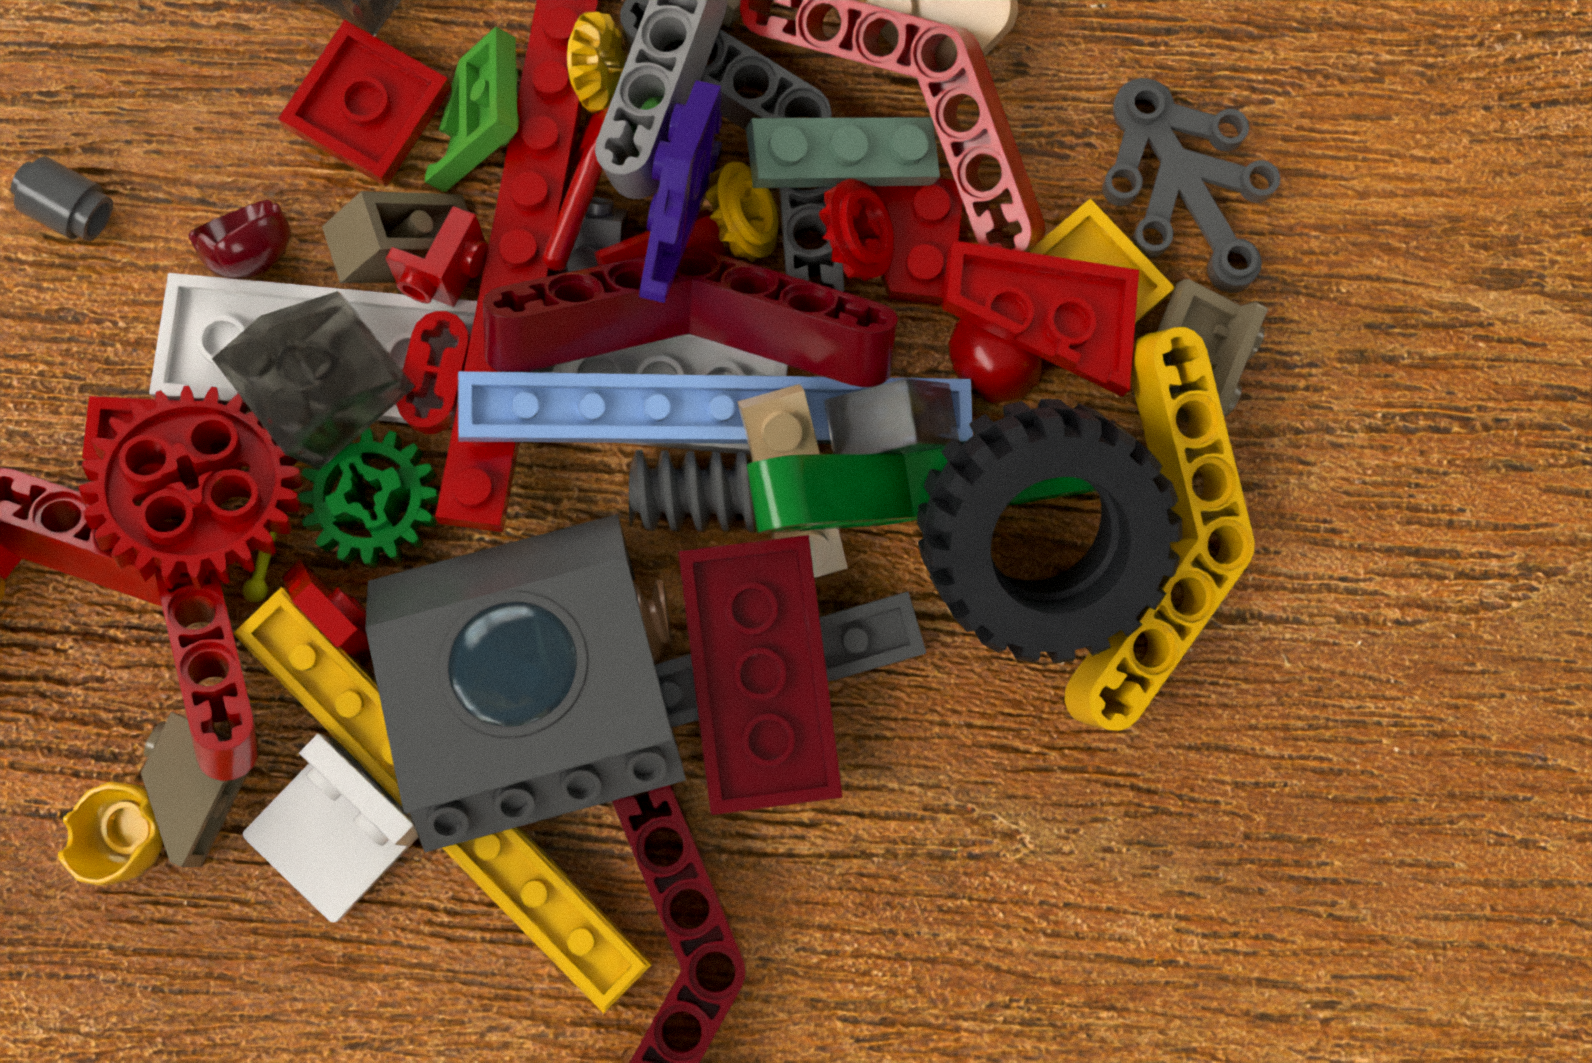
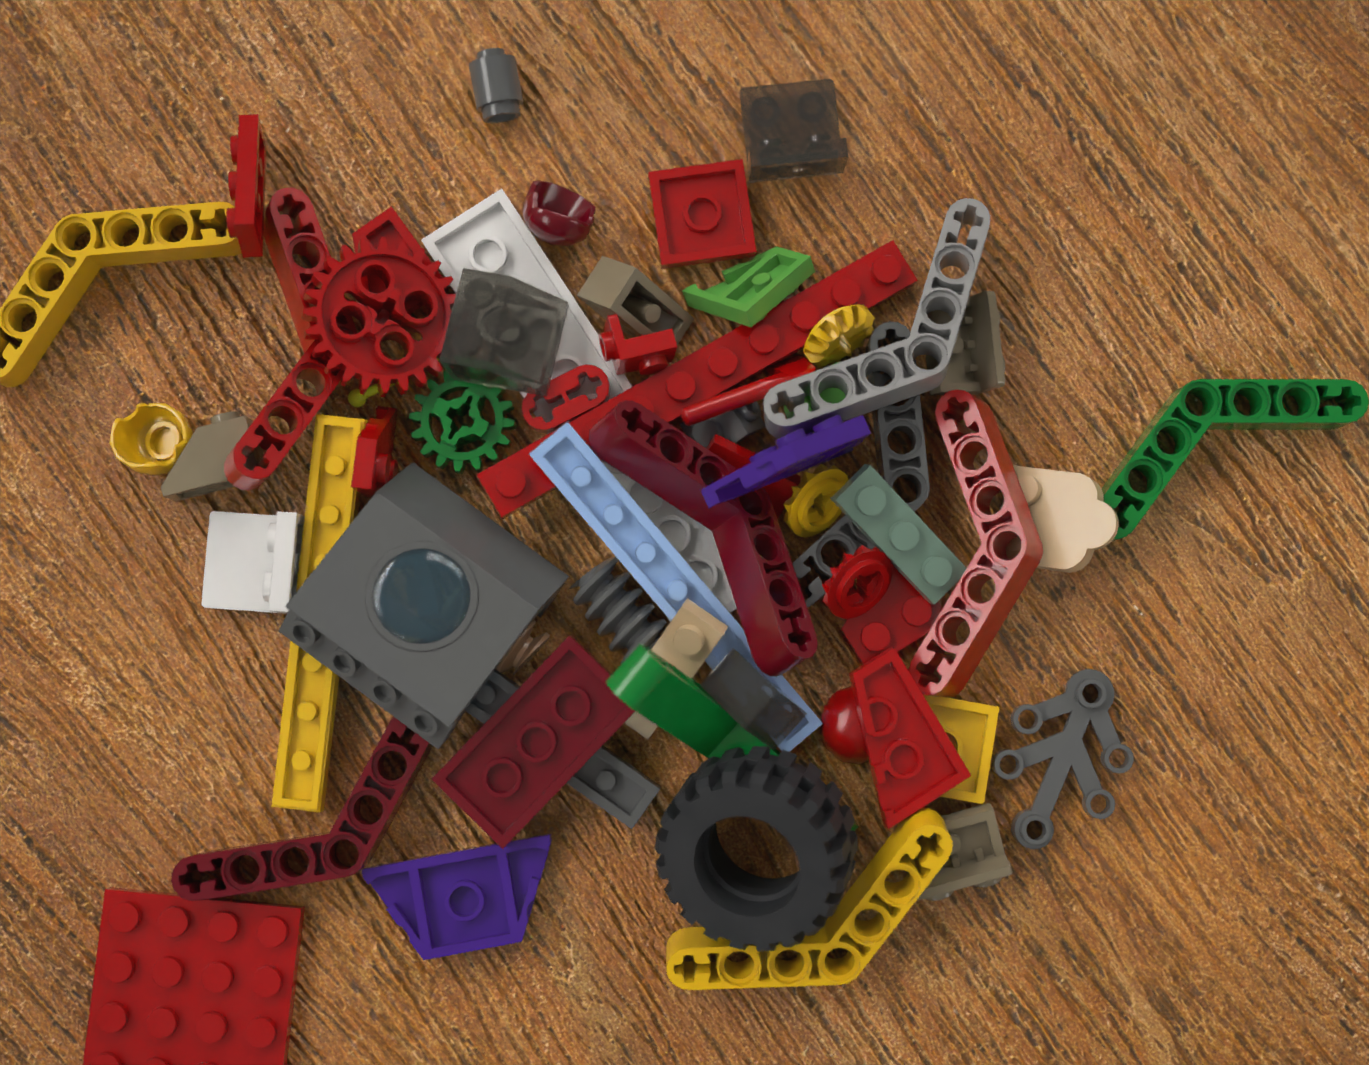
camera: 50 degrees right, 5 degrees up
(858, 883) = (463, 896): none -> dark purple wing

